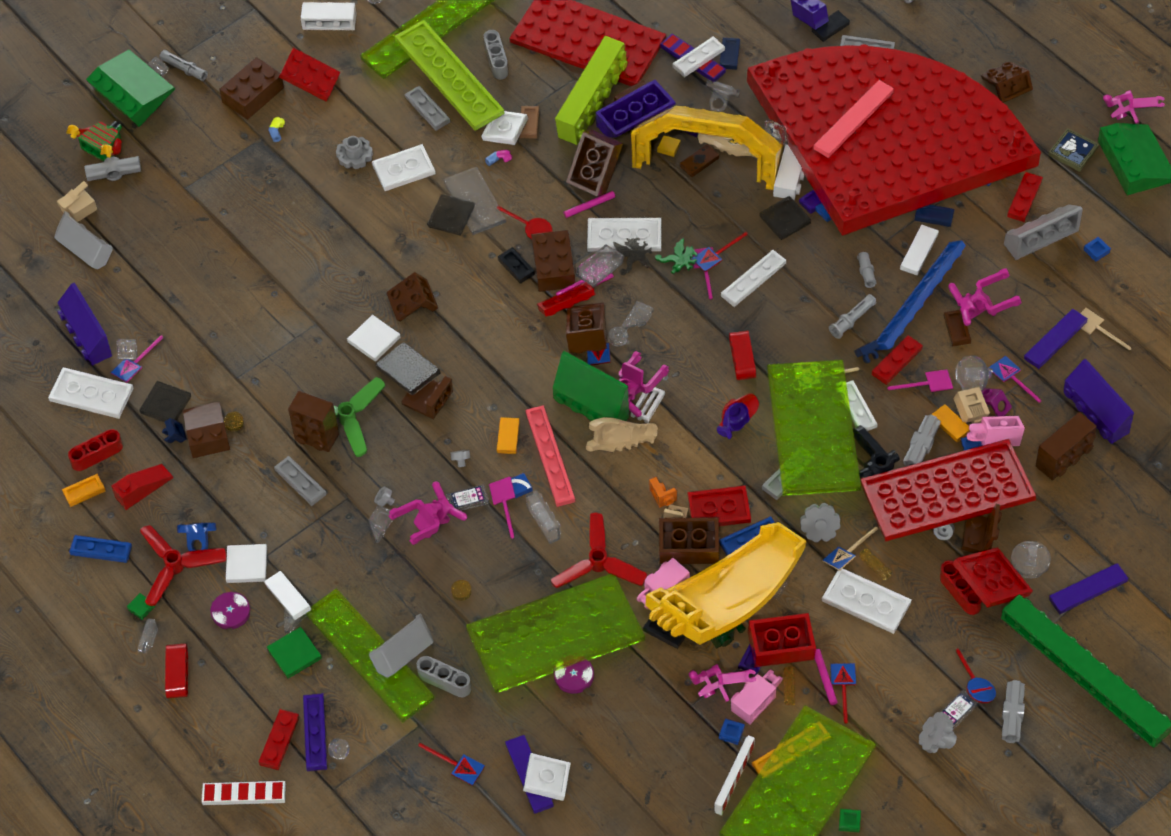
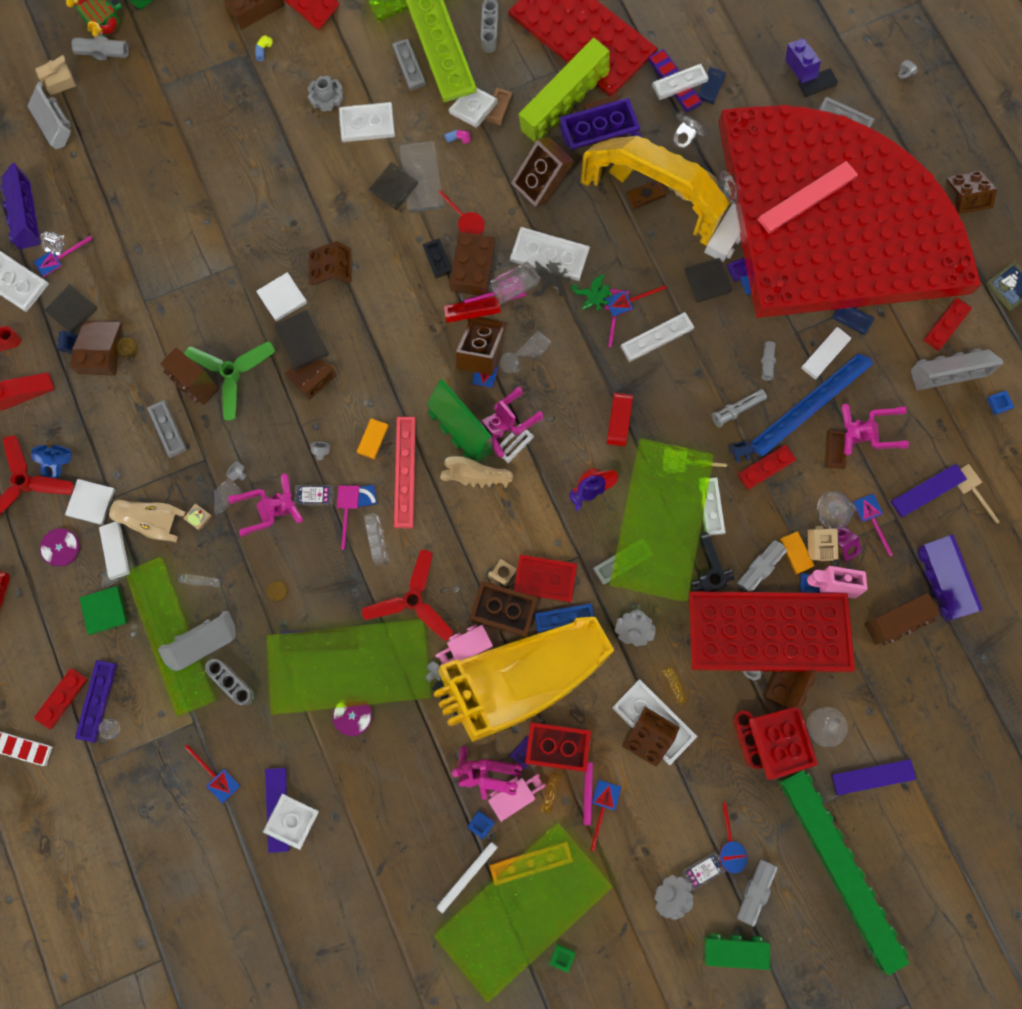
camera: 15 degrees right, 20 degrees up
(314, 560) = (149, 519): none -> tan animal
(358, 547) = (197, 517): none -> tile
(377, 598) = (198, 580): none -> clear tile
(589, 204) = (527, 211): dark pink bar -> none
(641, 612) = (433, 672): none -> light grey tile
(659, 492) = (494, 543): orange bracket -> none
(840, 558) = (643, 667): piece -> none
(866, 611) = (651, 736): none -> reddish brown bracket
(936, 380) = (798, 501): dark pink piece -> none
(1011, 765) = (736, 951): none -> green brick

